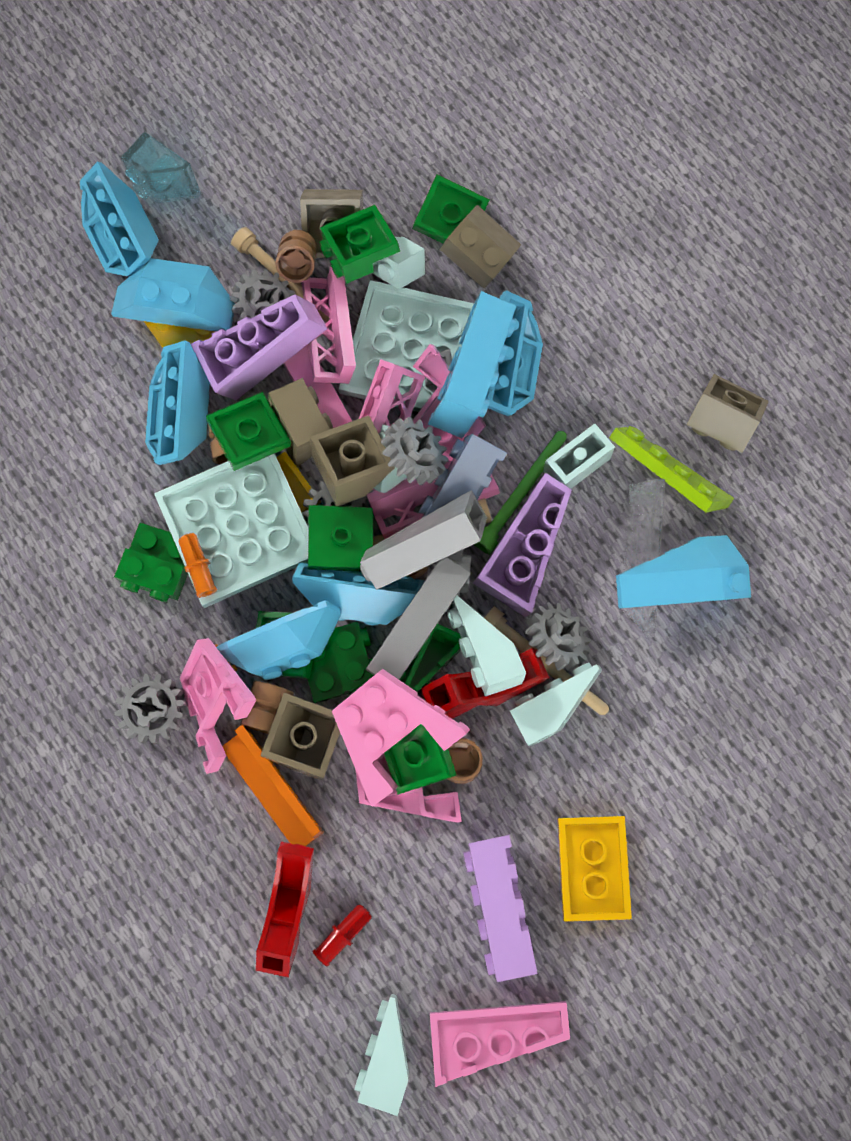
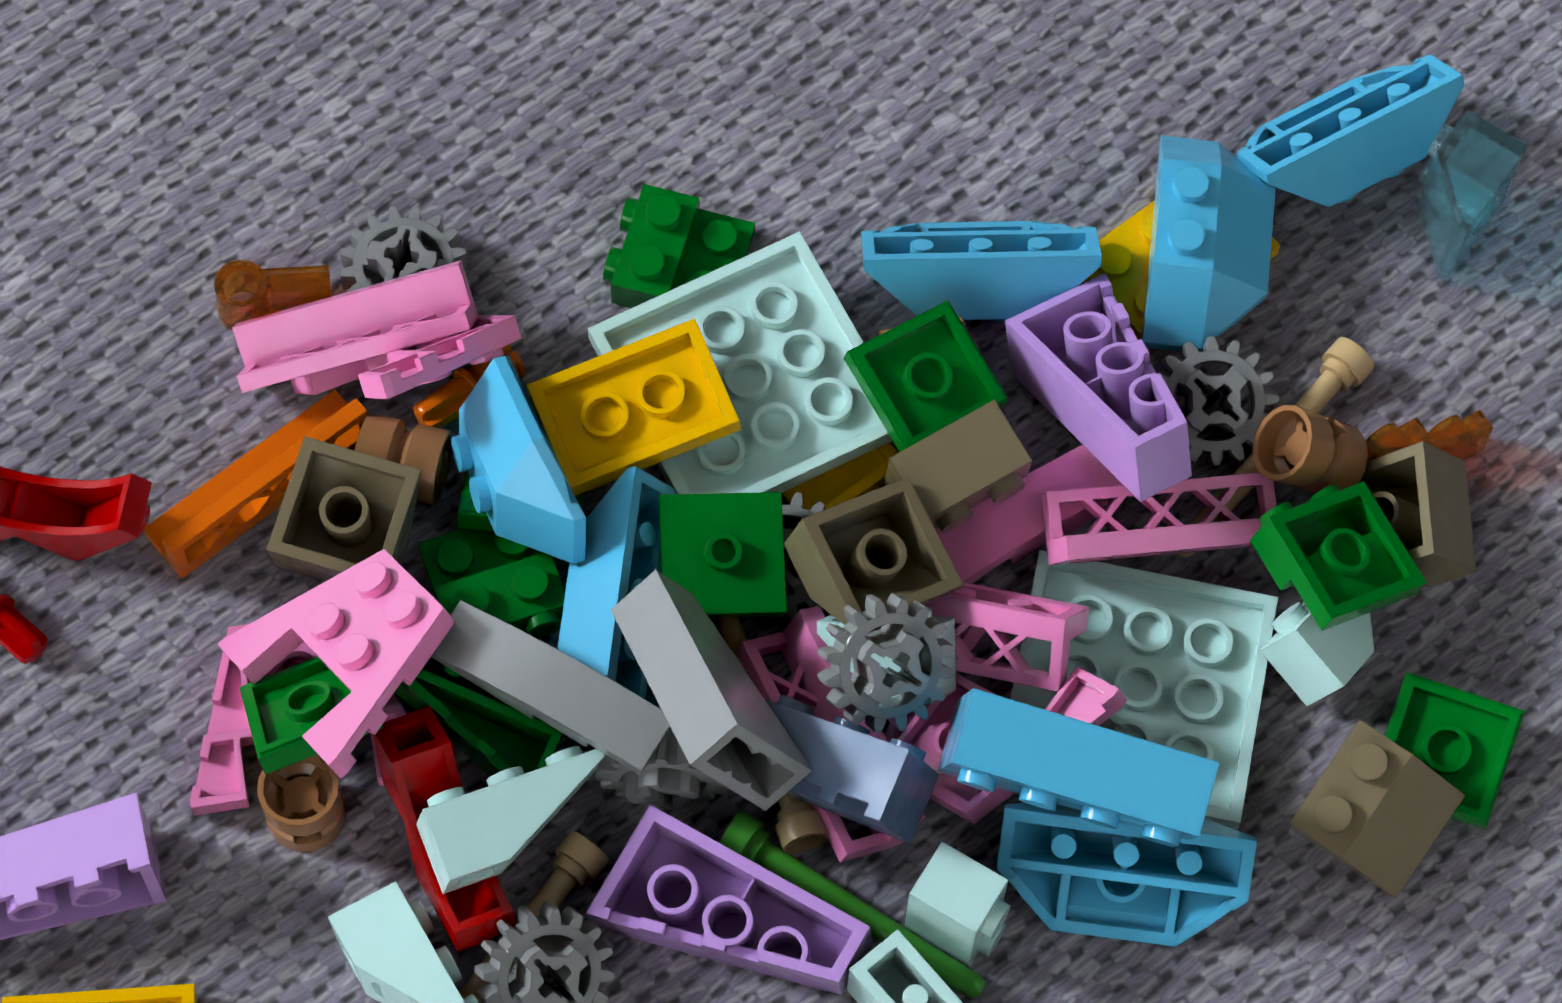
camera: 80 degrees right, 10 degrees down
(161, 777) = (273, 289): none -> clear orange piece
(190, 732) = (354, 326): none -> bright pink fence
(197, 565) = (658, 309): orange axle -> none
(253, 578) = (634, 406): none -> yellow plate
(291, 206) = (1453, 435): none -> clear orange slope
(530, 434) = (958, 905): none -> light aqua brick

